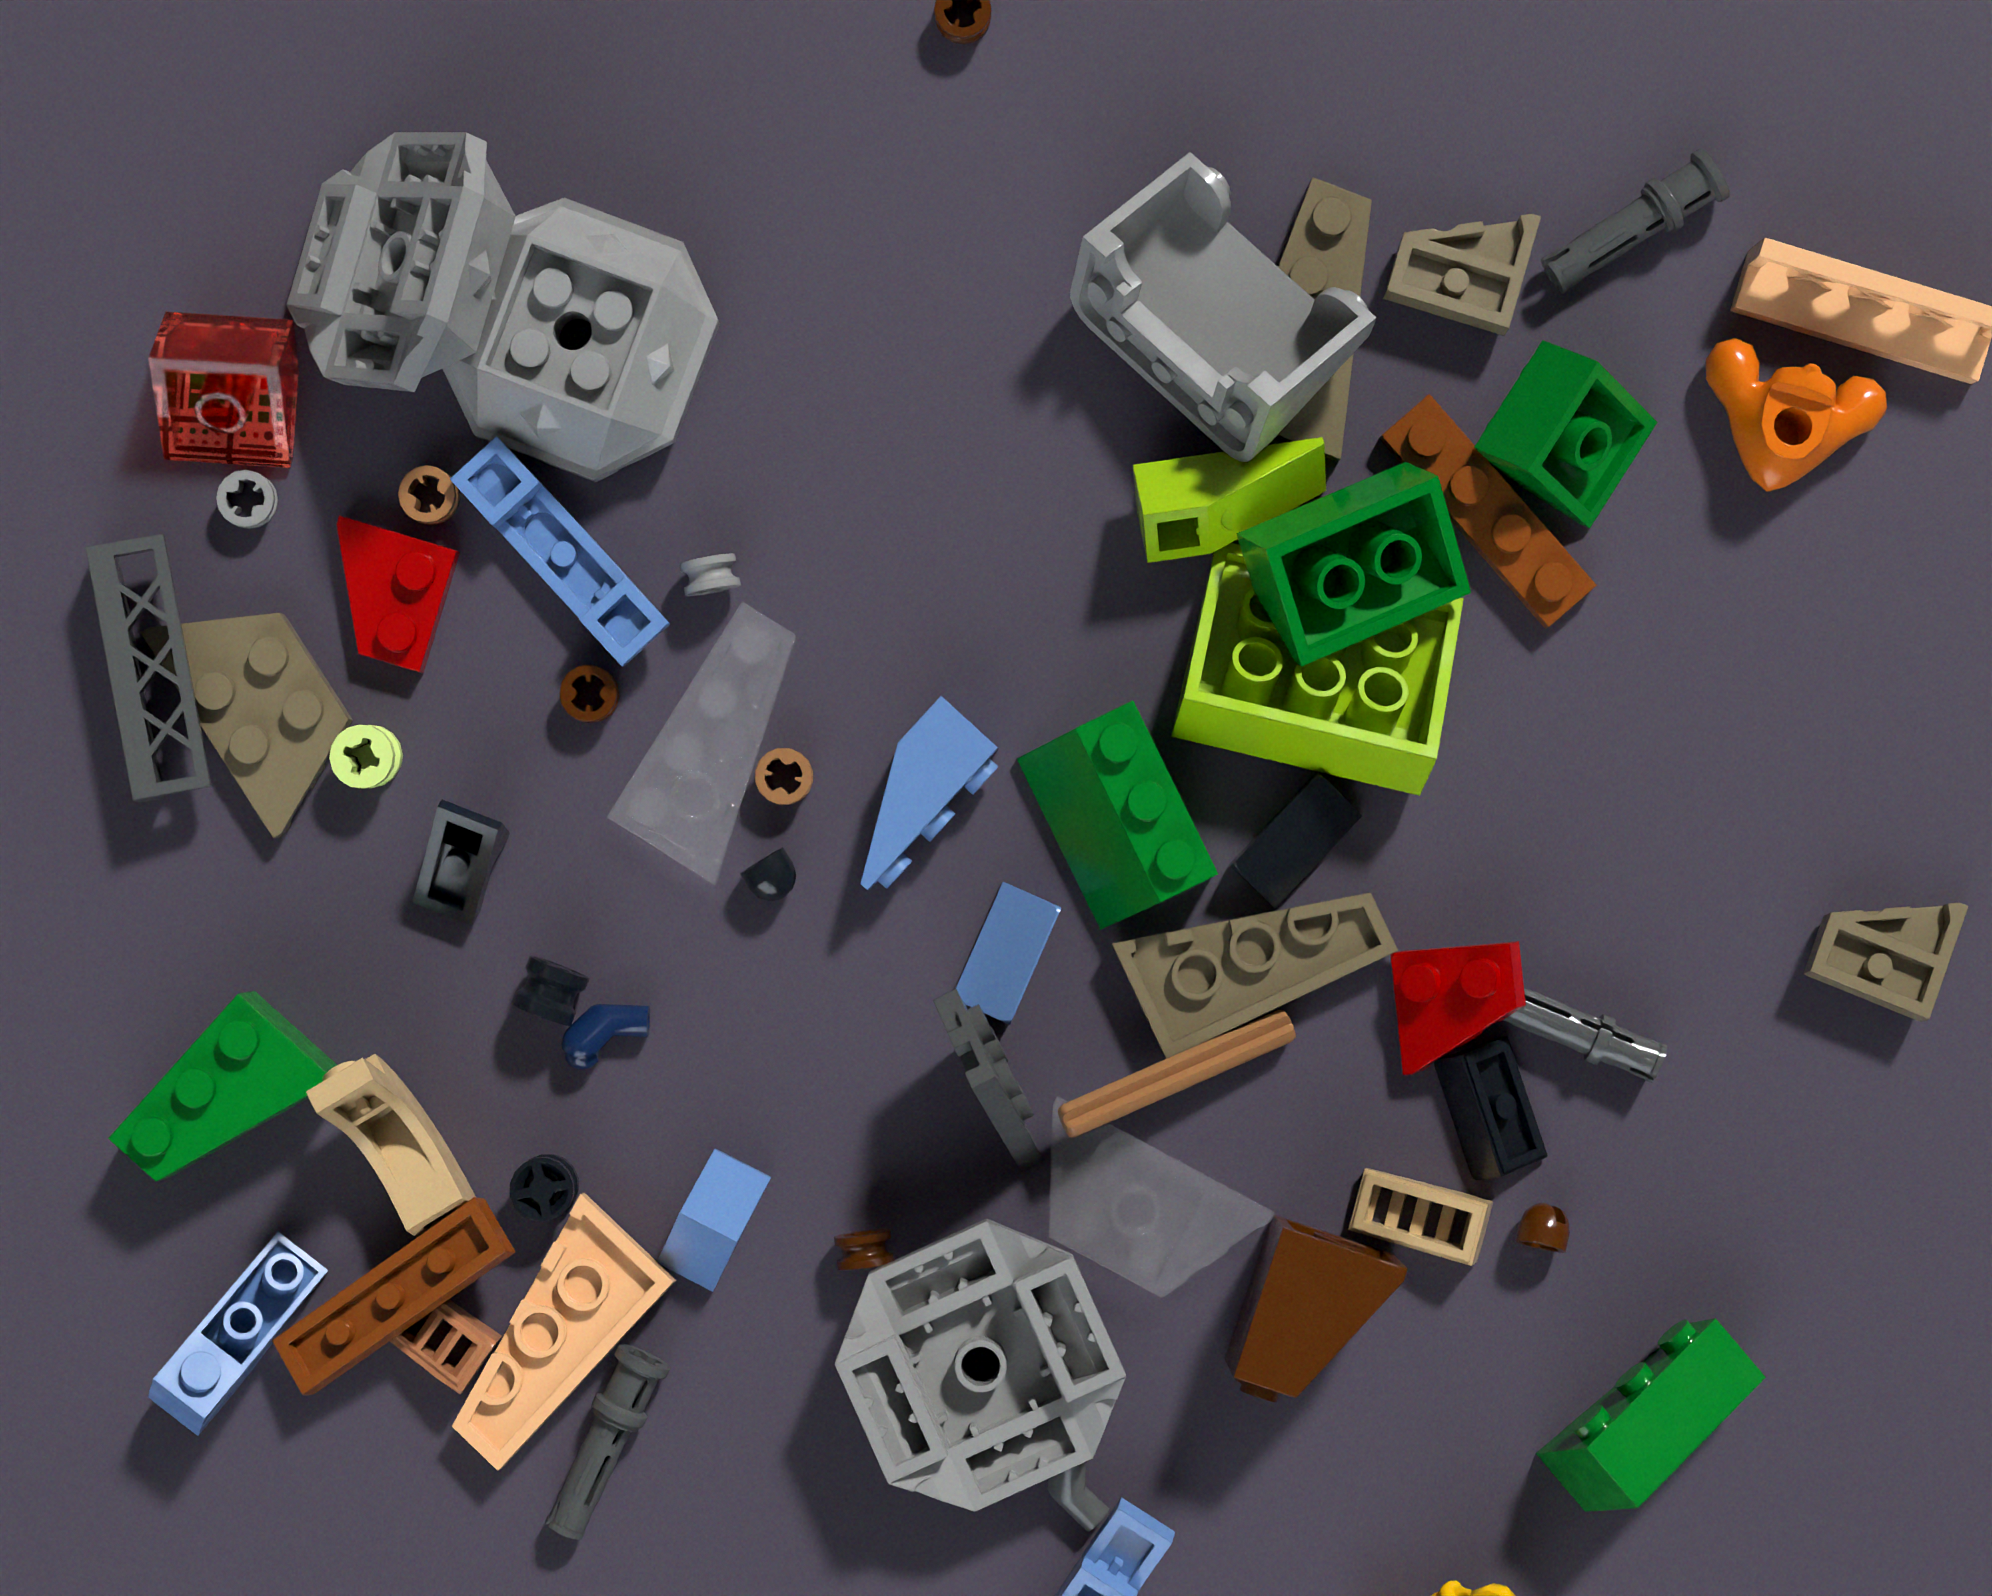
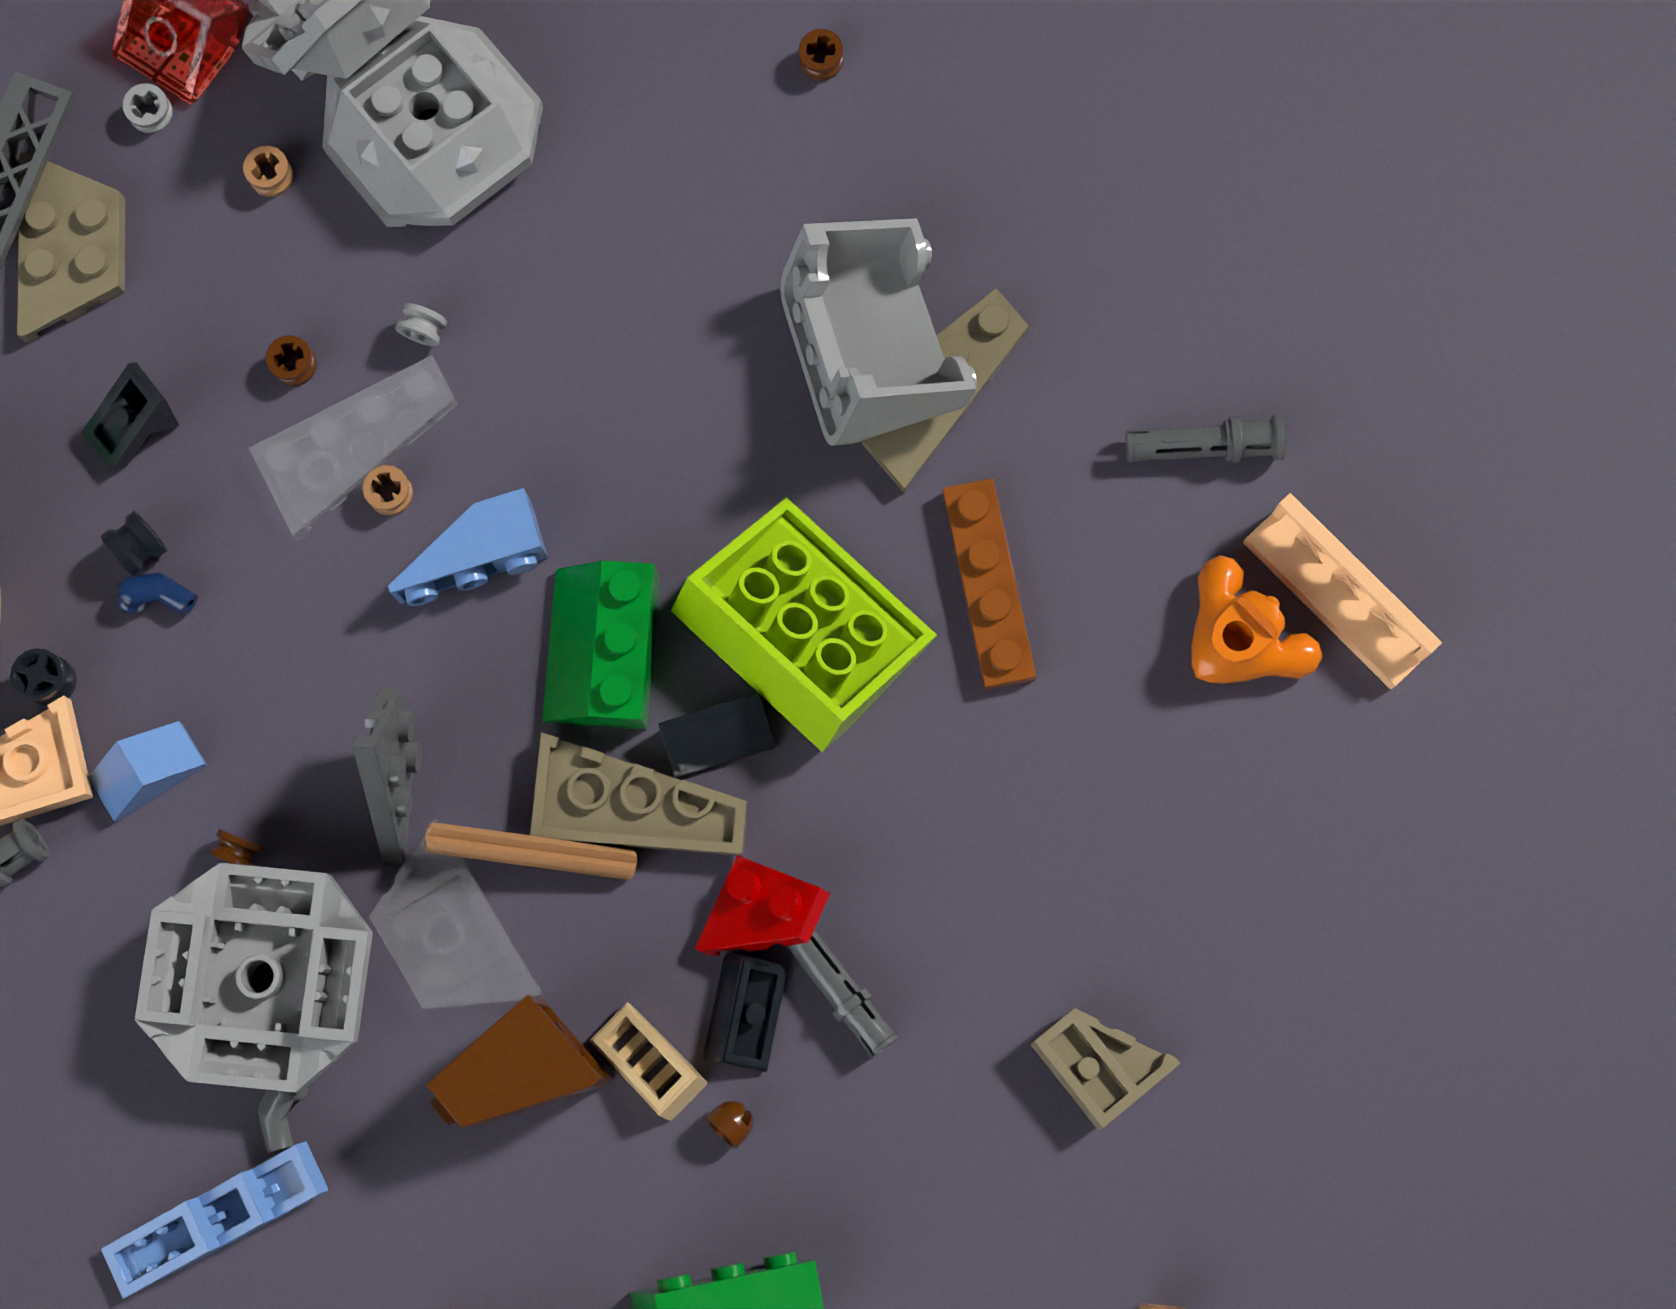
camera: 35 degrees right, 10 degrees down
(378, 759) = (125, 324): yellowish green wheel -> none
(394, 591) = (205, 222): red wing -> none
(560, 551) = (330, 250): medium blue slope -> none
(771, 876) = (335, 551): black hinge -> none
(1007, 952) = (466, 700): medium blue slope -> none
(1206, 499) = (800, 465): lime slope -> none
(1356, 561) = (870, 560): green slope -> none
(1465, 271) = (1065, 408): dark tan wing -> none
(1566, 432) = (1075, 558): green slope -> none

